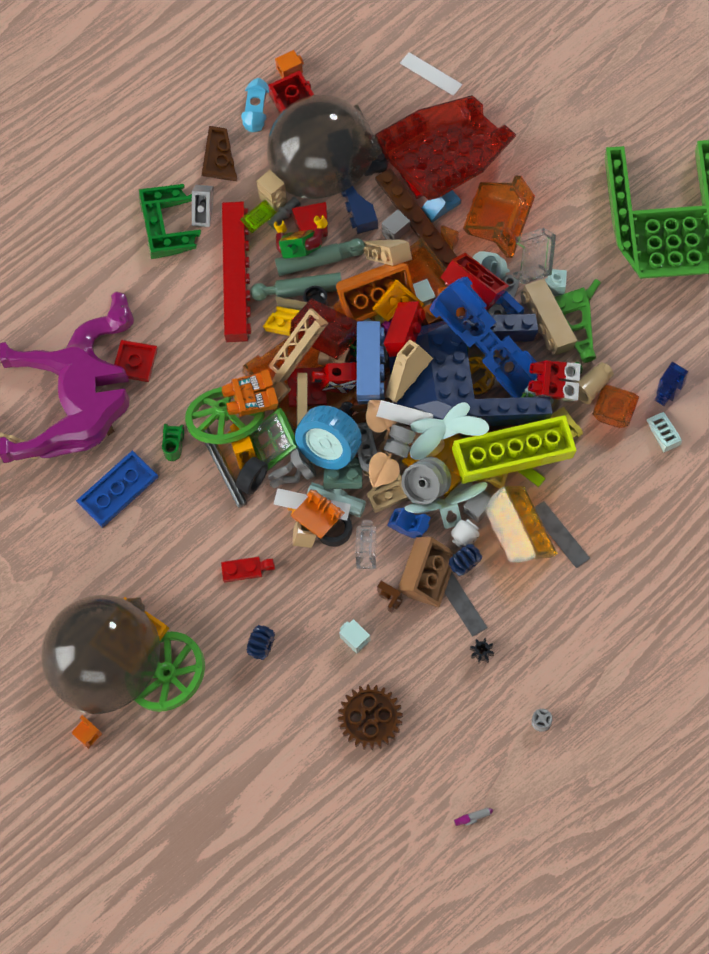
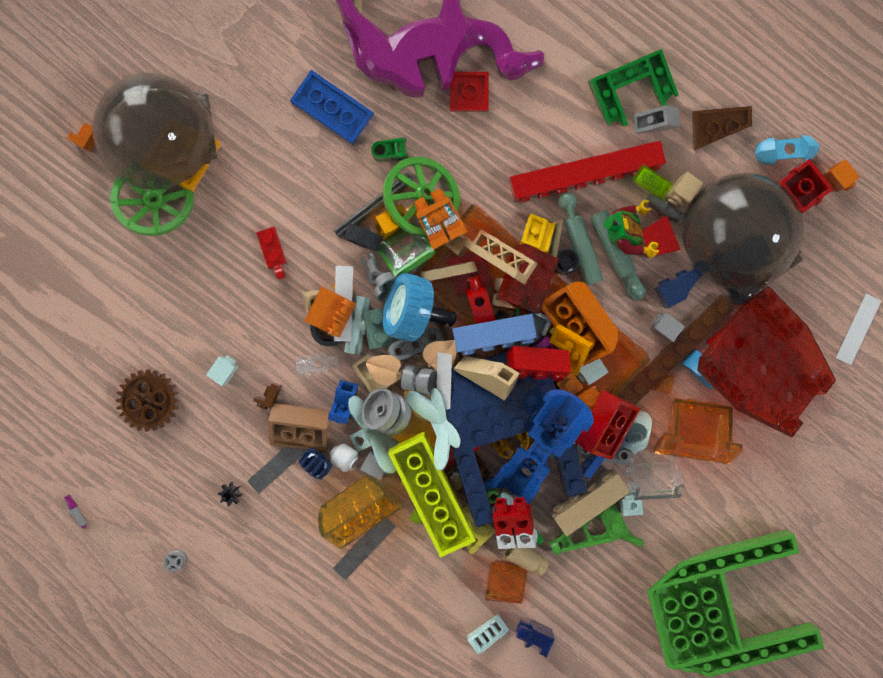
camera: 75 degrees right, 20 degrees up
(260, 642) = (197, 282): dark blue gear -> none
(388, 251) = (630, 329): tan slope -> none

